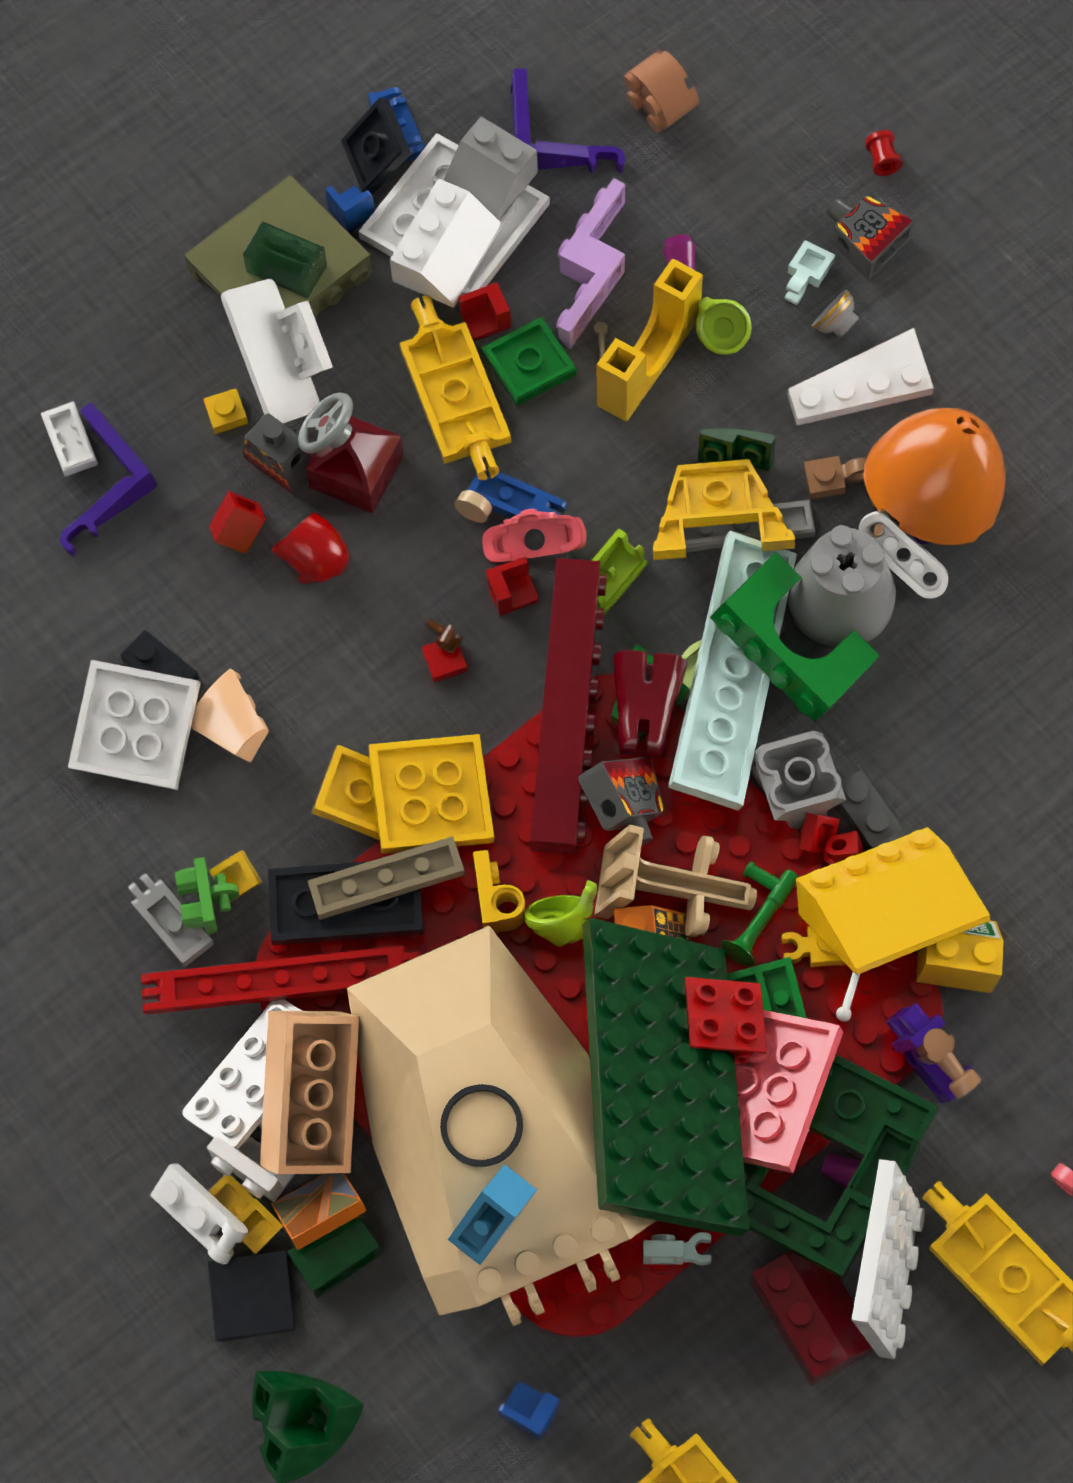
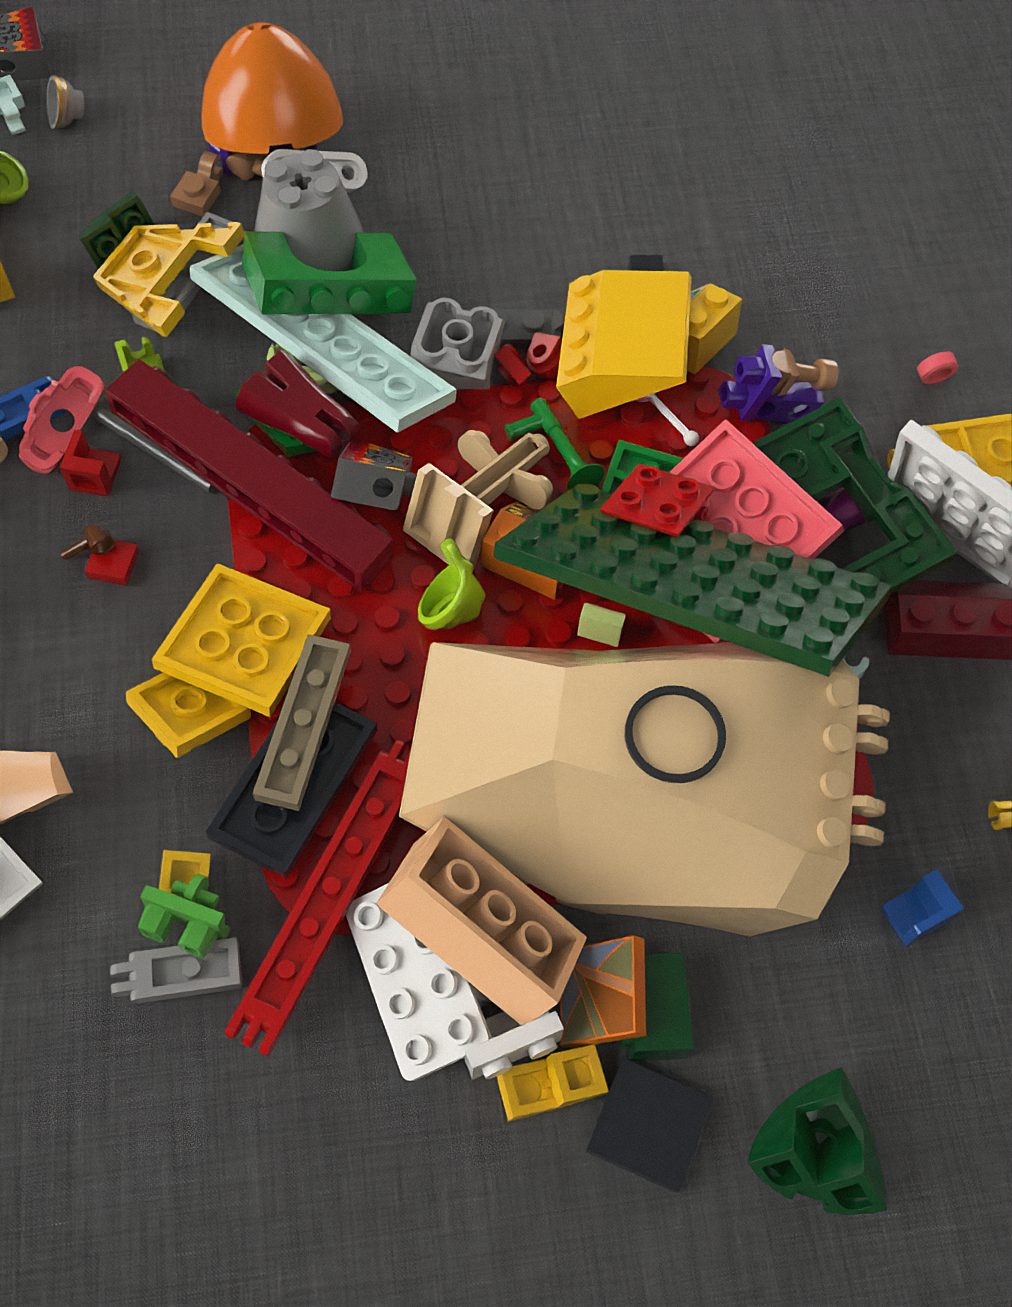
camera: 65 degrees left, 5 degrees down
(199, 1212) = (530, 1125): white plate -> none
(492, 1214) = (783, 775): dark azure slope -> none
(493, 896) = (385, 646): yellow plate -> none
(811, 946) = (617, 423): yellow plate -> none
(867, 381) = (136, 124): white wing -> none
(1012, 879) = (646, 263): none -> black piece

